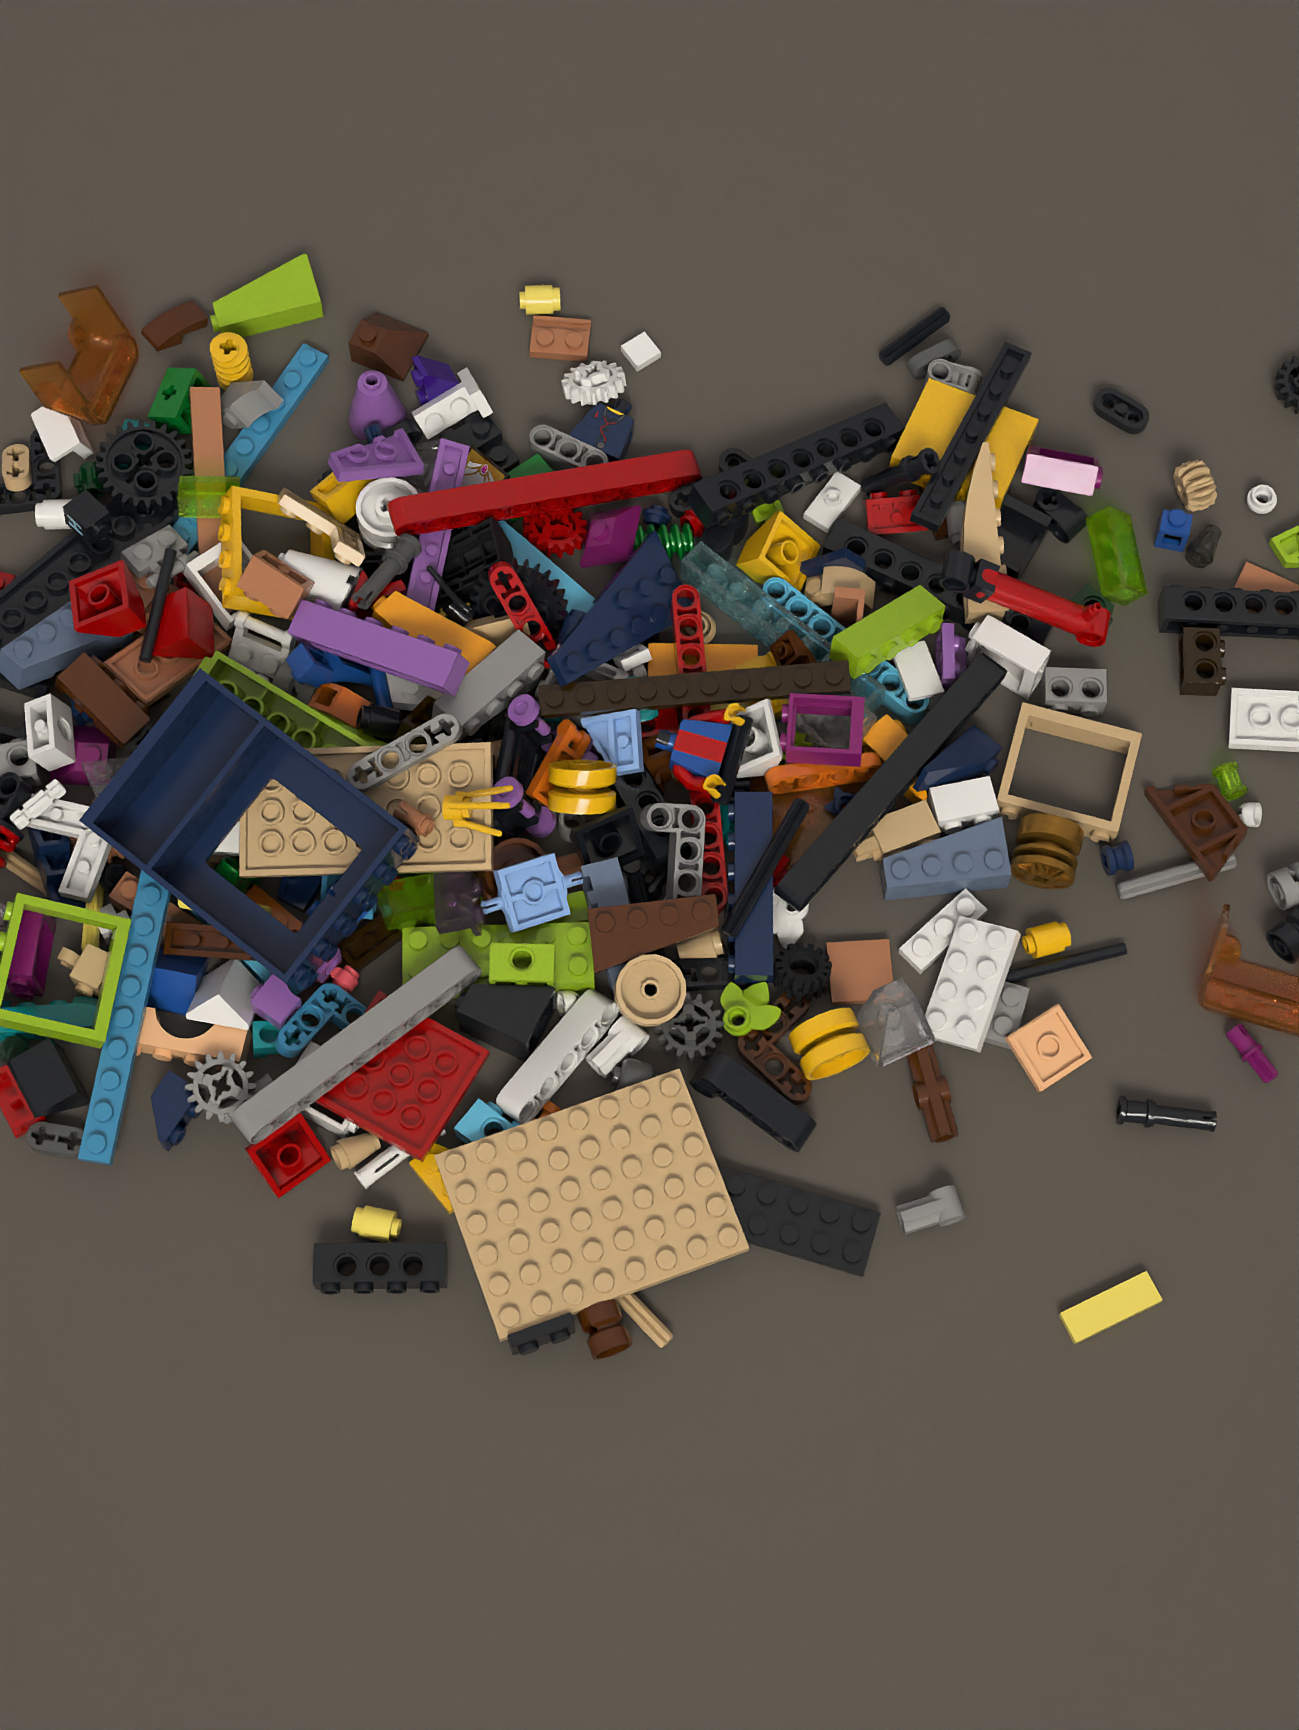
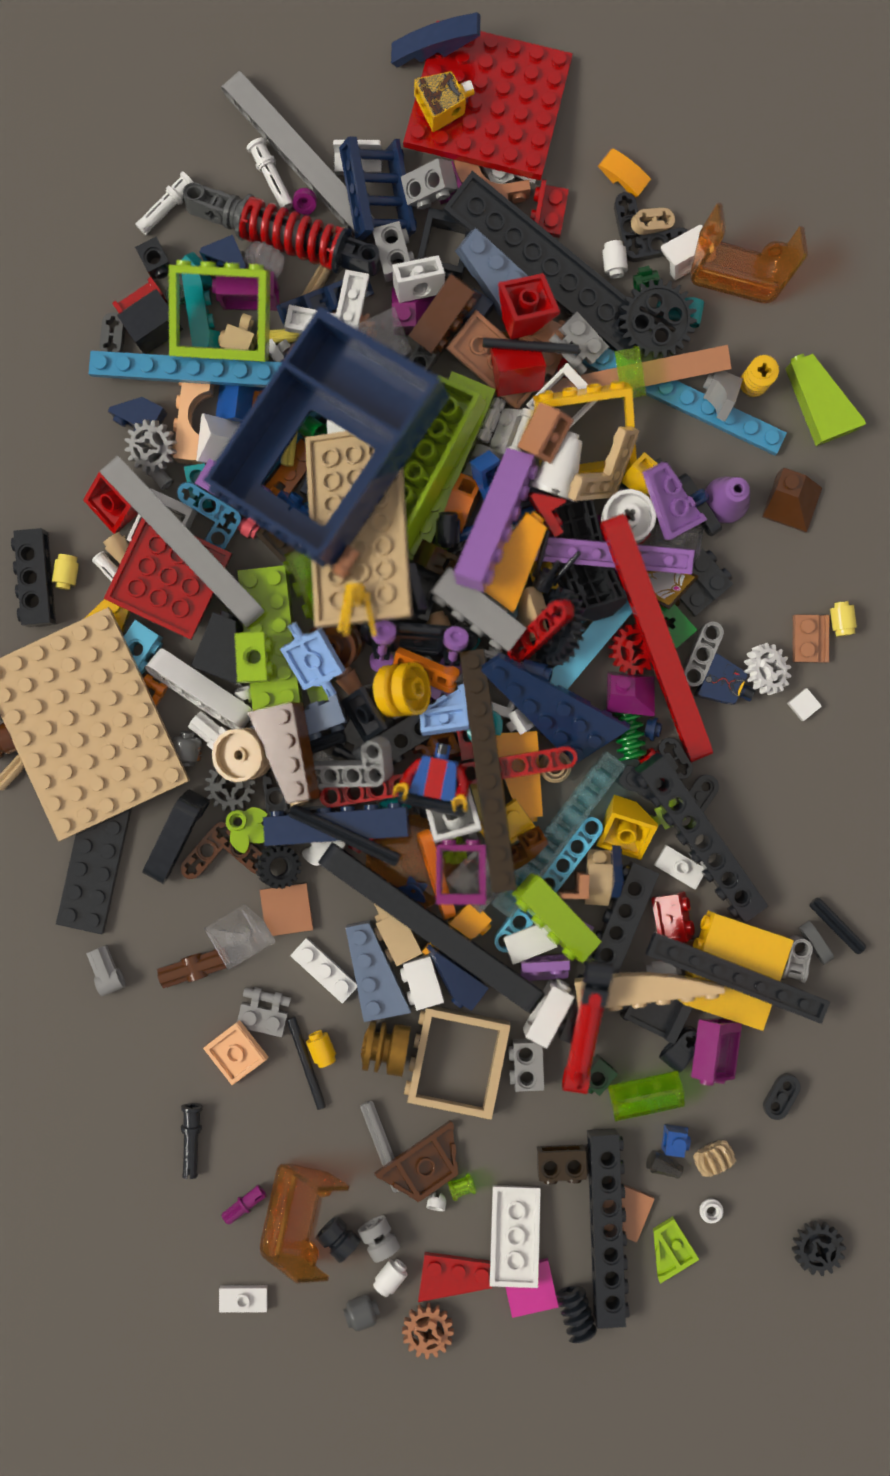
camera: 85 degrees right, 20 degrees up
(37, 804) = (356, 278): white axle -> none
(87, 517) = (605, 281): black brick -> none
(170, 327) = (792, 325): reddish brown slope -> none
(173, 401) = (720, 333): green brick -> none
(393, 563) = (574, 524): dark grey pin -> none
(406, 757) = (396, 549): light grey beam -> none
(431, 378) = (753, 542): dark purple slope -> none
(452, 406) = (737, 559): white bracket -> none
(458, 902) = (295, 605): bracket -> none
(829, 1043) = (218, 890): yellow wheel -> none
(909, 469) = (701, 928): black pin -> none
(971, 982) = (277, 993): white plate -> none
(1110, 1307) = (46, 1102): light yellow tile -> none
(1117, 858) = (391, 1101): dark blue wheel -> none

